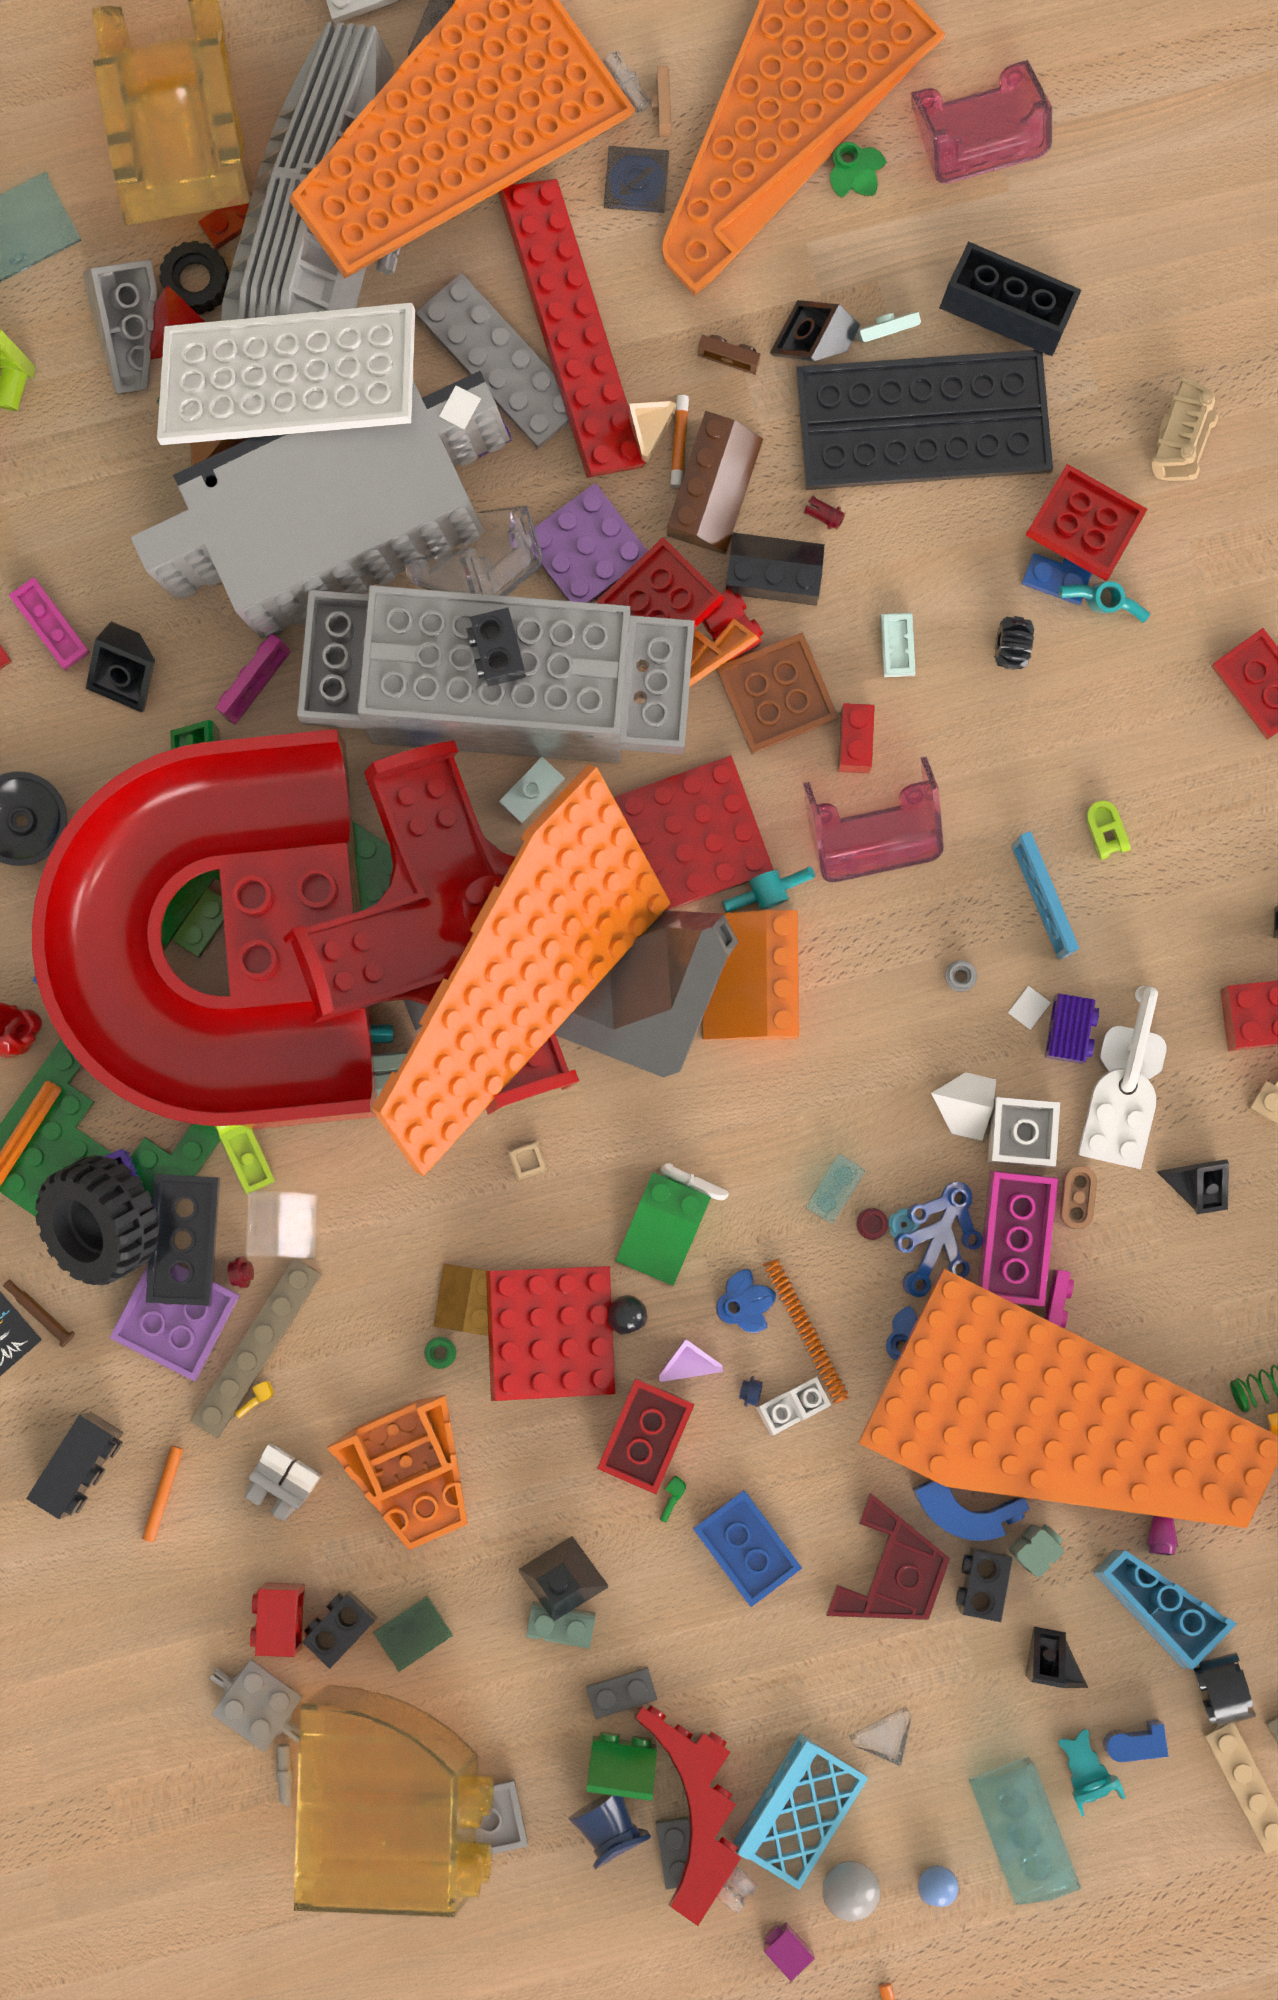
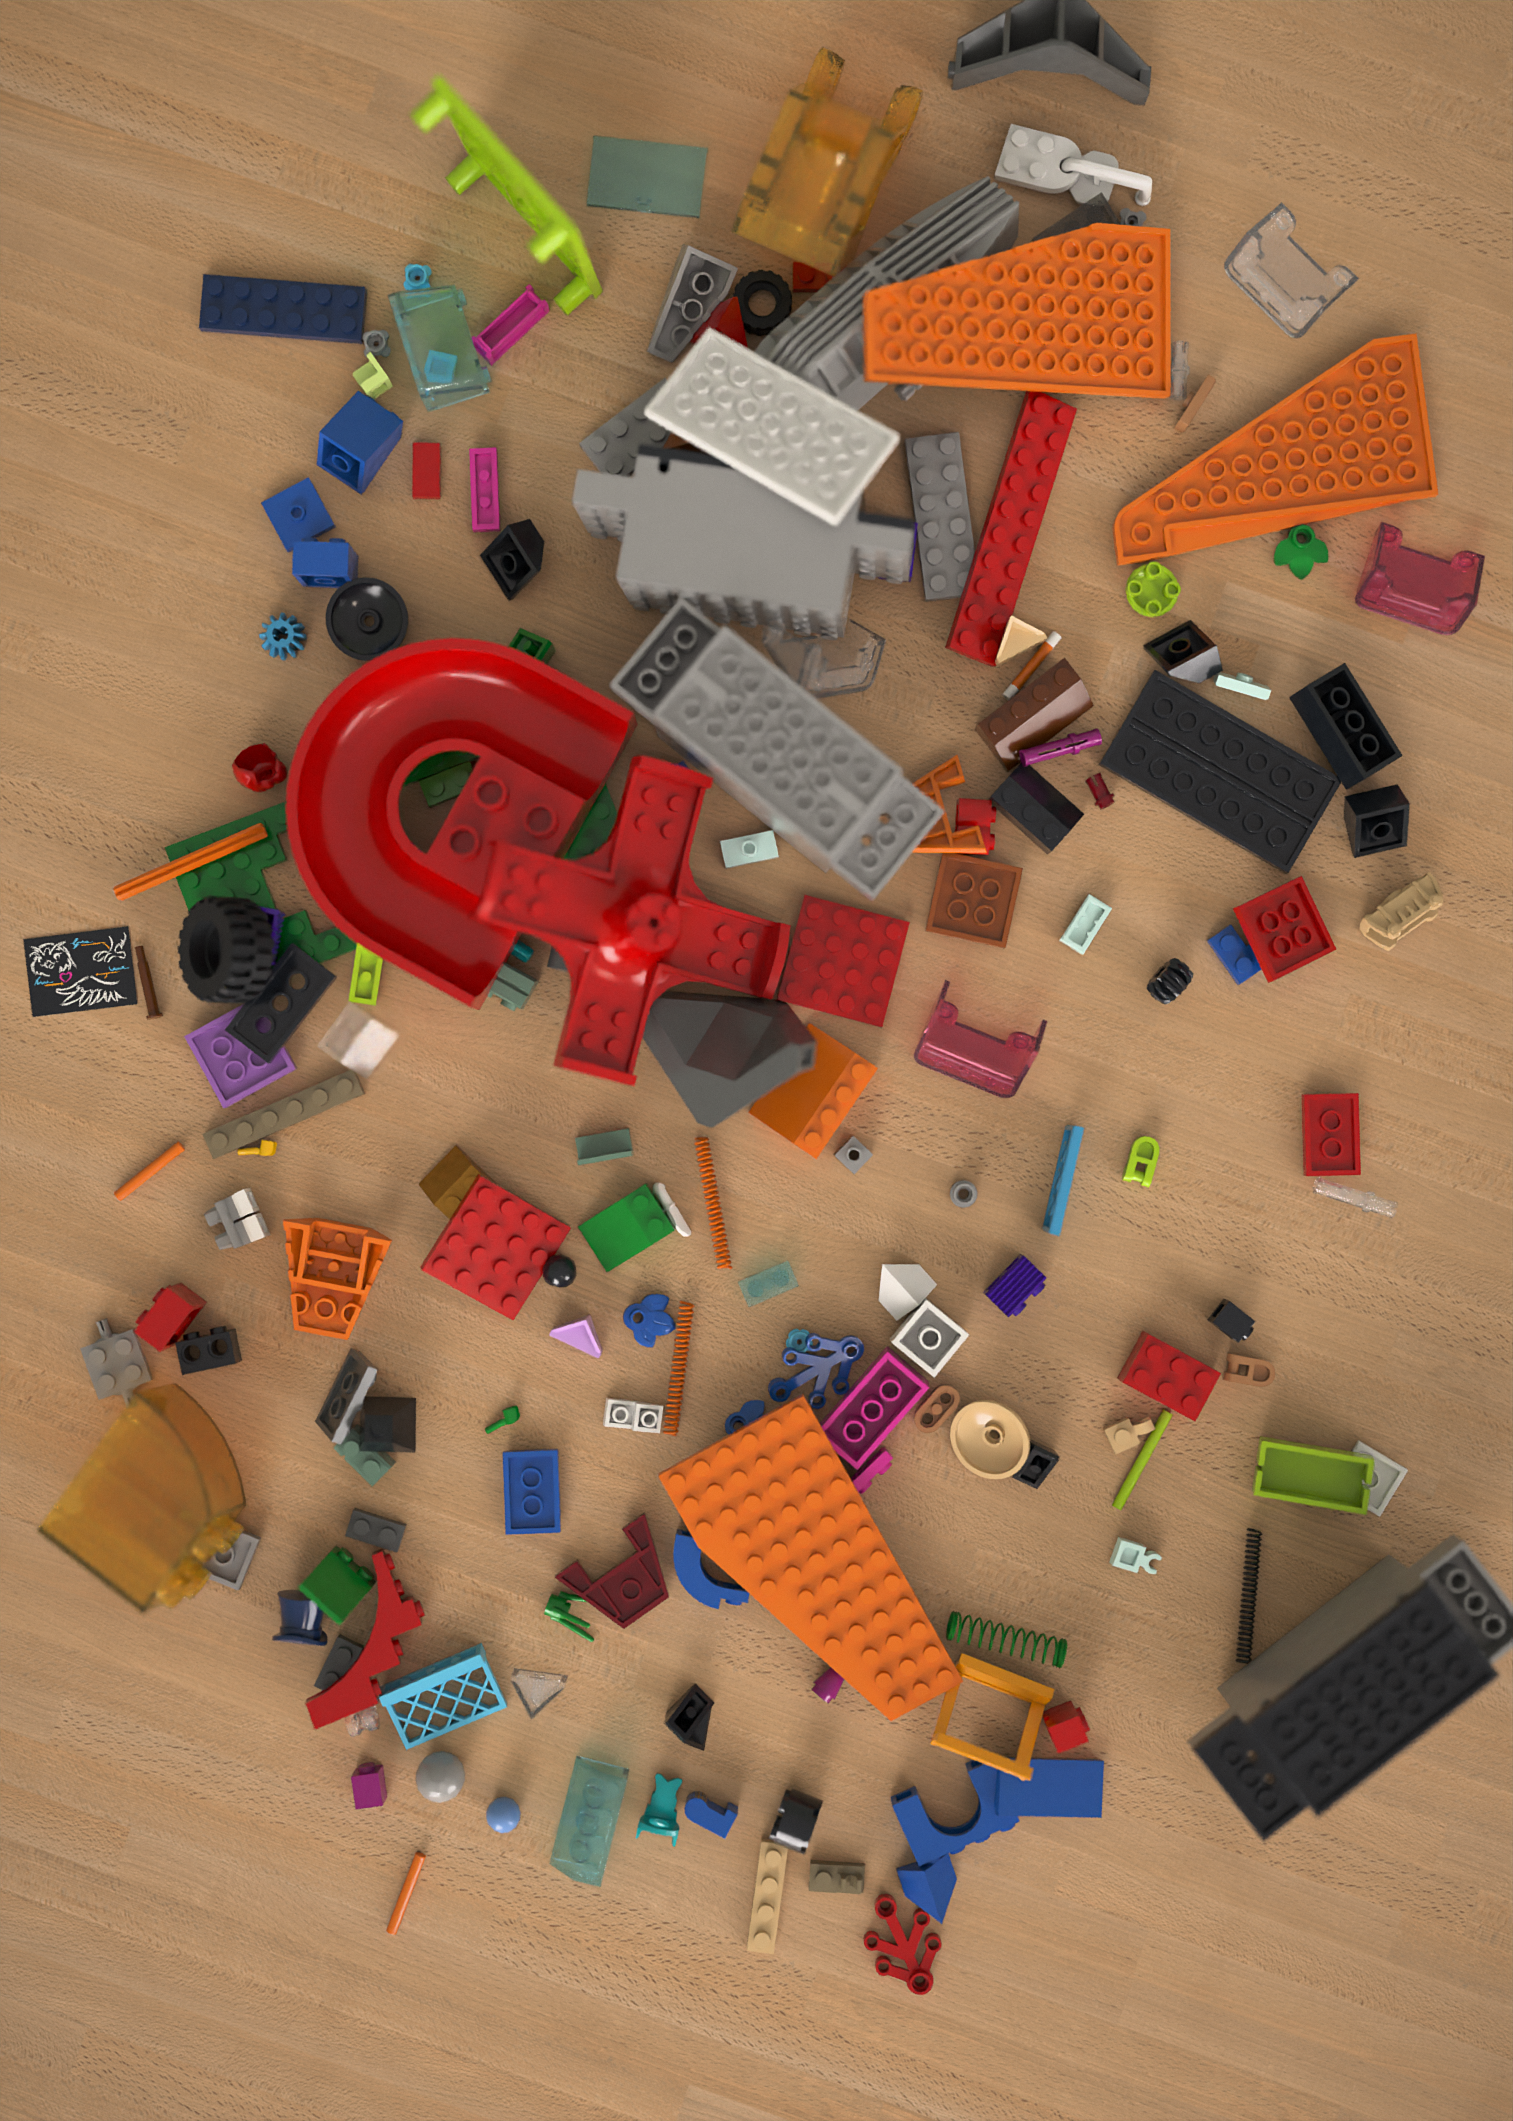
camera: 30 degrees right, 5 degrees up
(76, 1466) = (99, 1111): black brick -> none
(149, 487) = (616, 443): none -> light grey plate
(240, 1272) = (307, 1053): dark red plate -> none
(252, 679) = (603, 630): dark pink plate -> none
(284, 1774) = (104, 1424): light grey piece -> none
(413, 1633) = (258, 1389): clear green plate -> none
(430, 1356) = (402, 1210): green plate -> none
(460, 407) = (880, 537): white sticker -> none
(503, 645) = (790, 737): black brick -> none
(504, 1578) = (346, 1396): none -> dark grey plate
(527, 1161) = (564, 1113): tan tile -> none
(533, 956) = (660, 976): wing -> none
(587, 546) = (911, 699): medium lavender plate -> none
(588, 1166) = (604, 1146): none -> sand green panel
(636, 179) = (1135, 448): clear smoke tile -> none
(645, 1436) = (513, 1365): red brick -> none
(664, 587) = (941, 768): red plate -> none
(722, 1143) = (713, 1201): none -> orange piece
(738, 357) = (1106, 618): reddish brown plate -> none
(743, 296) = (1152, 589): none -> lime dish
(751, 1391) = (610, 1384): dark blue plate -> none
(768, 889) = (868, 1038): teal piece -> none
(781, 472) = (1089, 738): none -> magenta pin
(822, 1018) = (843, 1154): none -> light grey plate
(853, 1646) = (558, 1610): none -> green plant
(856, 738) = (1007, 971): red brick -> none
(872, 1223) = (777, 1326): dark red plate -> none
(993, 1585) = (686, 1635): black brick -> none
(1029, 1007) = (997, 1249): white sticker -> none
(1037, 1549) = (733, 1634): sand green brick -> none
(1093, 600) = (1251, 986): teal piece -> none
(1100, 366) = (1376, 820): none -> black slope
(1118, 1122) = (1045, 1335): white plate -> none
(1145, 1206) = (983, 1450): none -> tan dish
(1172, 1616) = (795, 1743): dark azure wedge -> none

